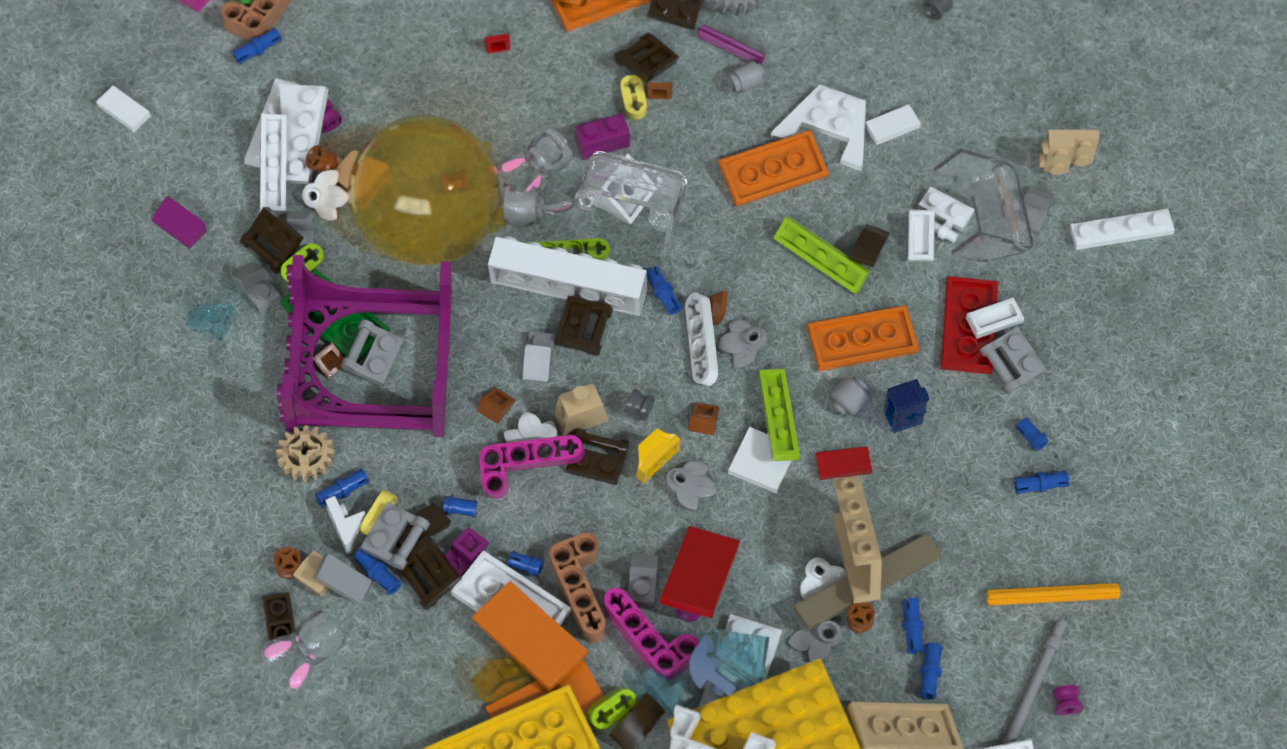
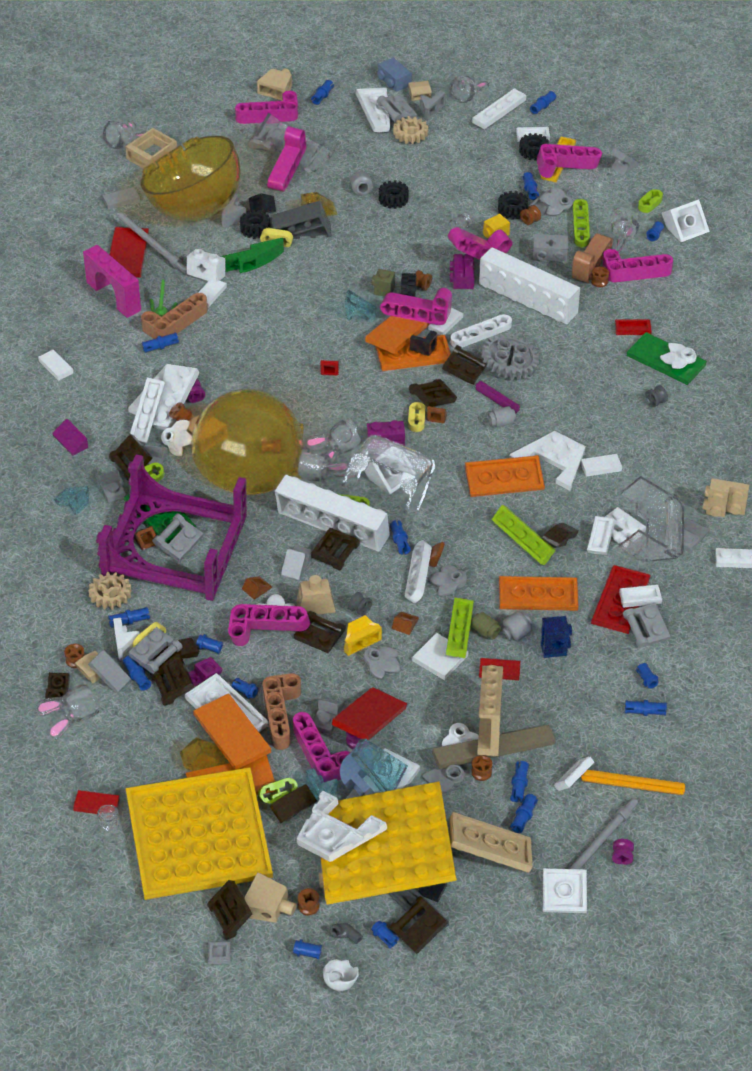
camera: 15 degrees right, 15 degrees down
(810, 403) = (486, 625): none -> olive brick
(978, 600) = (573, 773): none -> white tile

